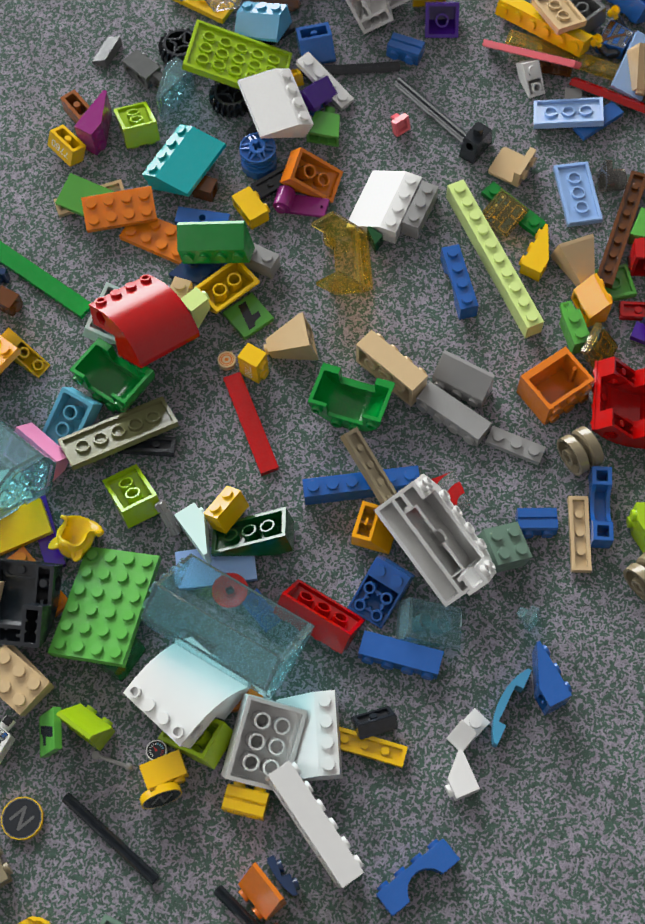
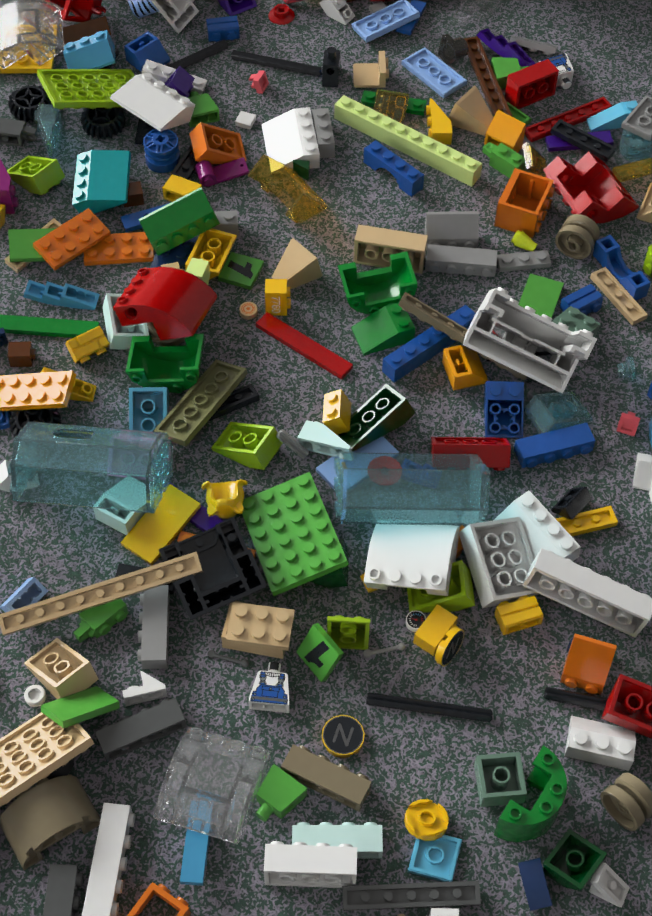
camera: 35 degrees left, 10 degrees down
(65, 322) = (87, 344): none -> yellow brick
(79, 260) = (65, 296): none -> dark azure slope
(325, 449) = (384, 329): none -> green slope
(360, 159) = (245, 120): none -> white tile
(474, 63) = (281, 14): none -> red piece
(487, 673) = (628, 423): none -> coral tile
(501, 494) = (541, 295): none -> bright green tile
(529, 425) = (523, 241): none -> neon yellow cone

